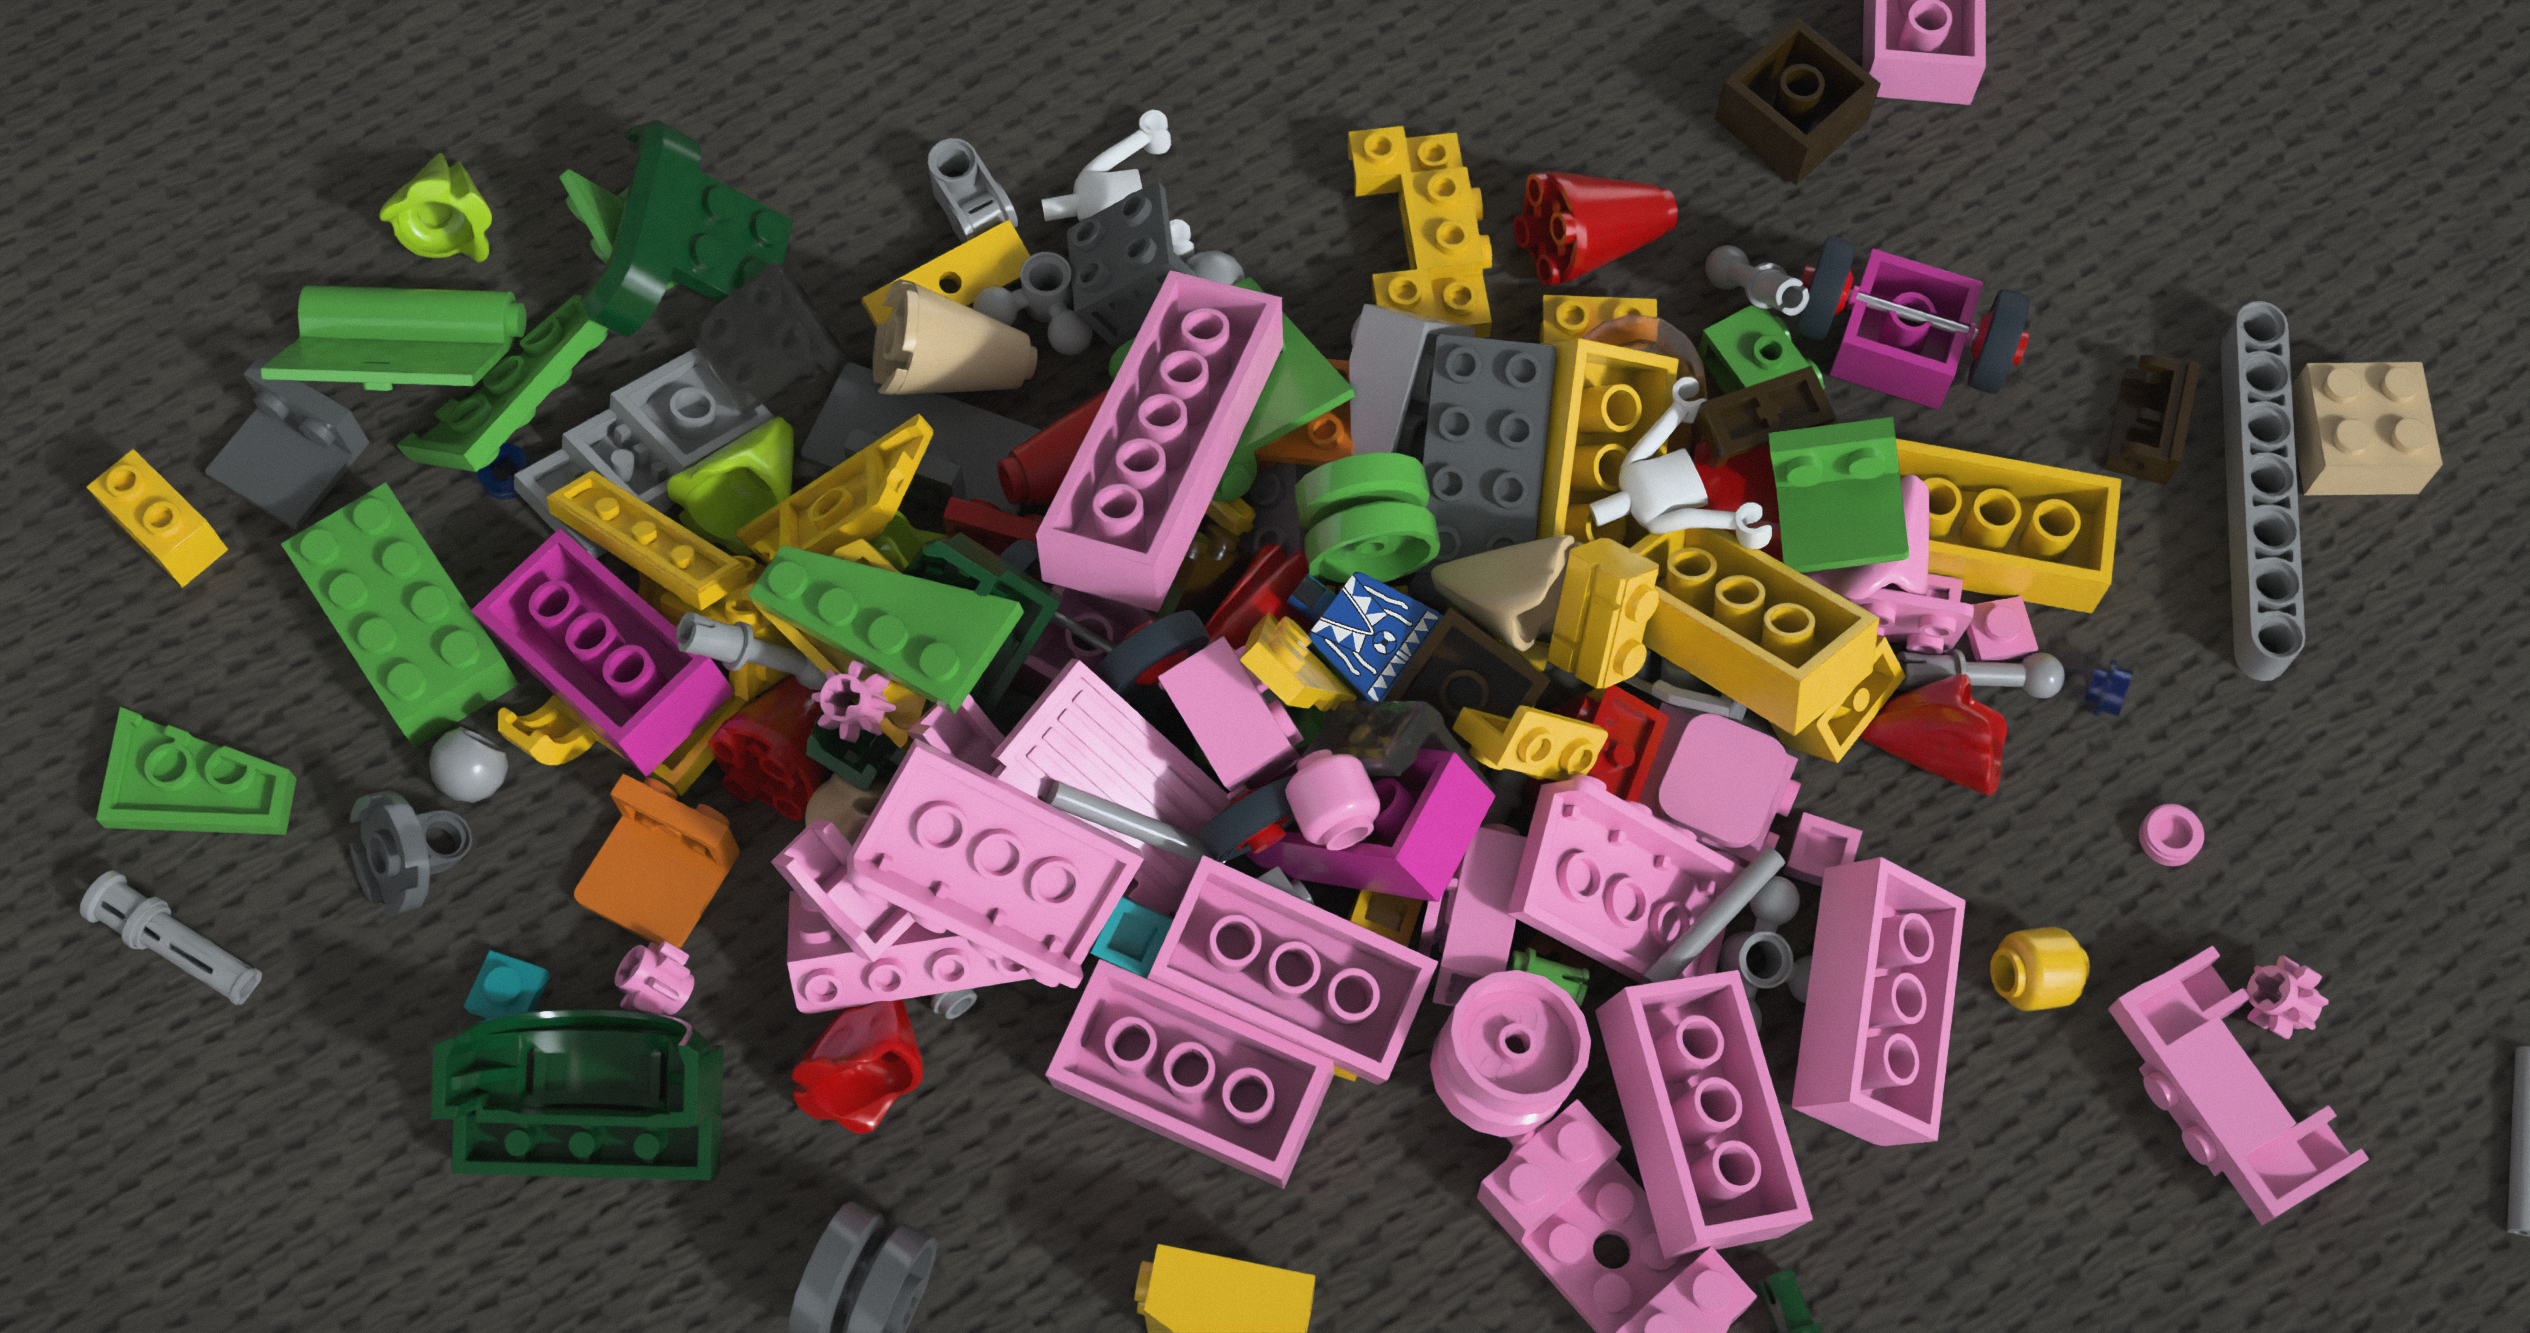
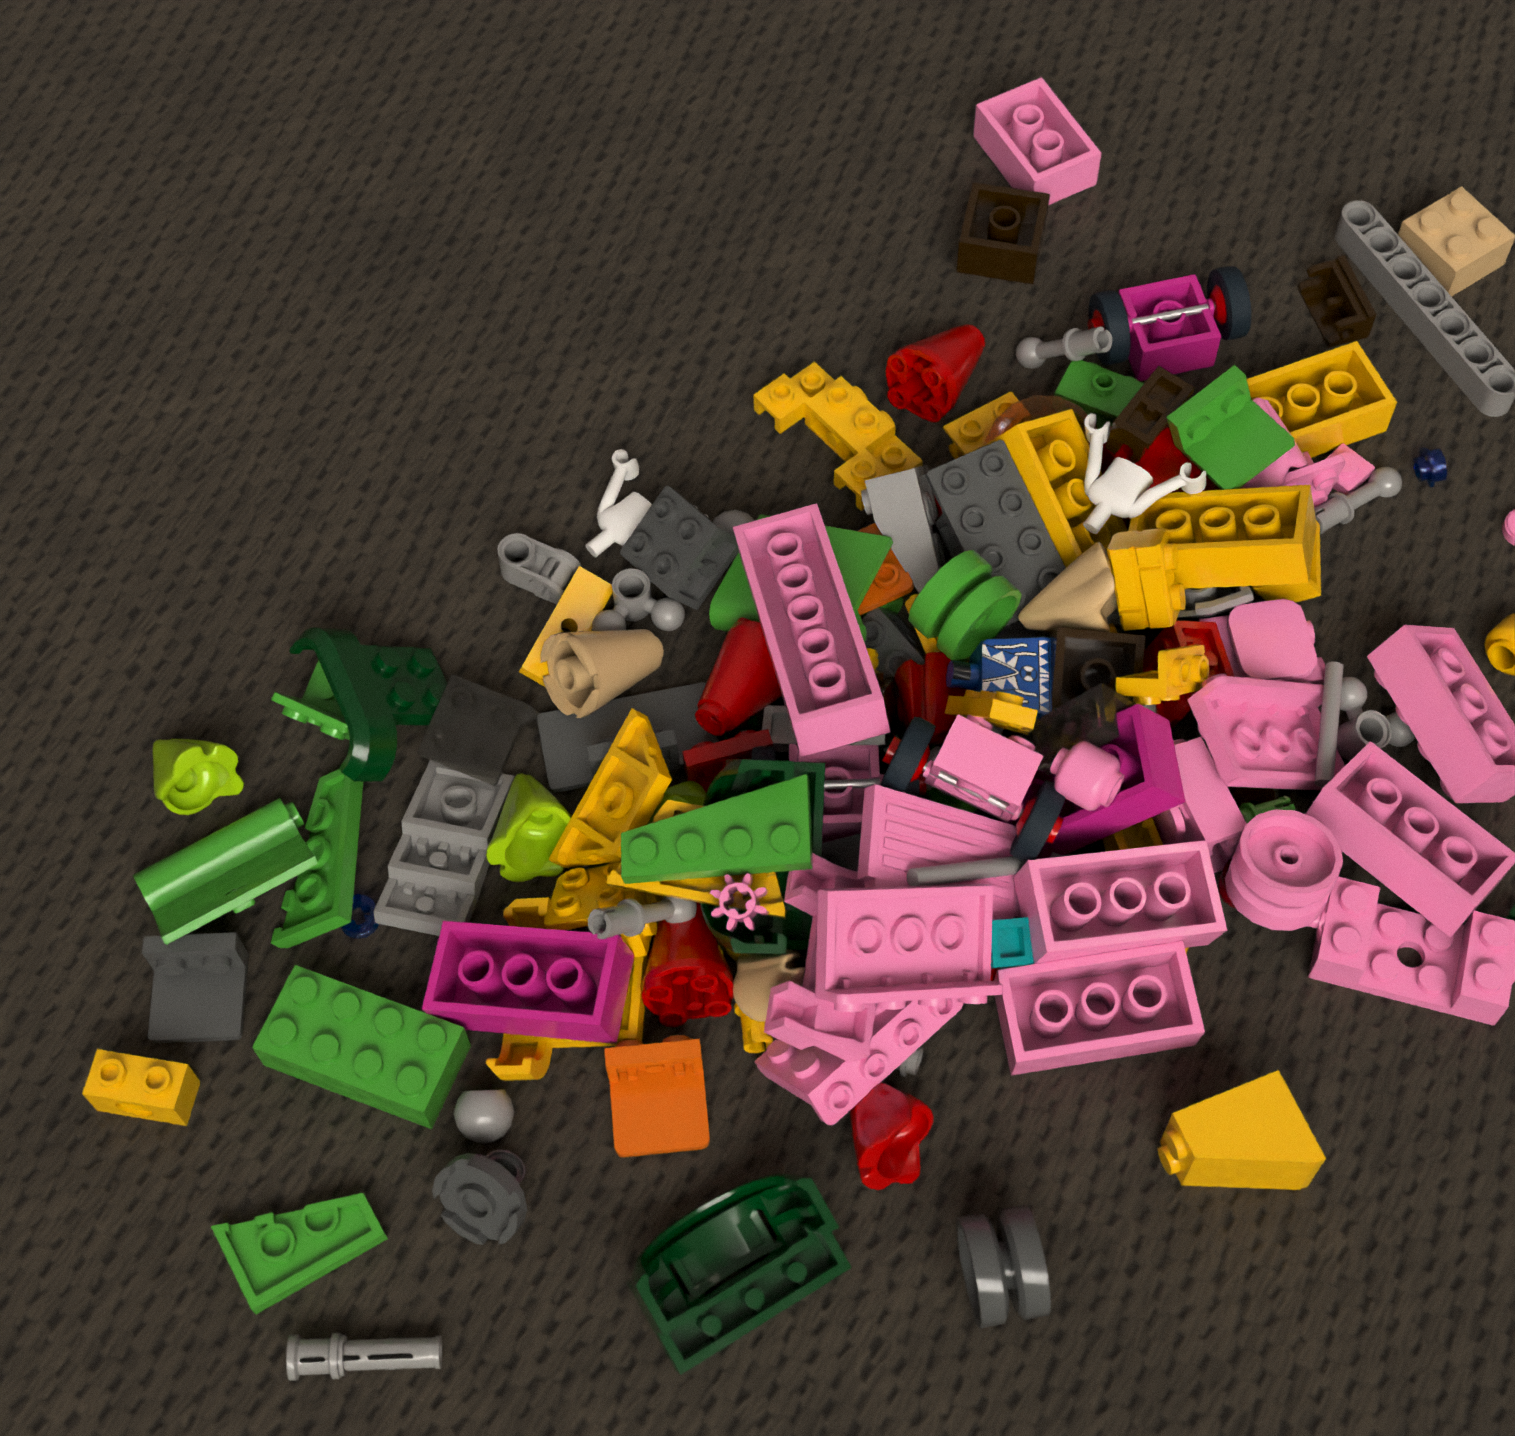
camera: 30 degrees left, 5 degrees down
(506, 987) = (616, 1240): teal plate -> none
(647, 540) = (504, 894): yellow tile -> none
(654, 979) = (714, 1168): bright pink gear -> none
(1818, 846) = (1349, 649): bright pink plate -> none
(1943, 733) = (1365, 543): red hat -> none

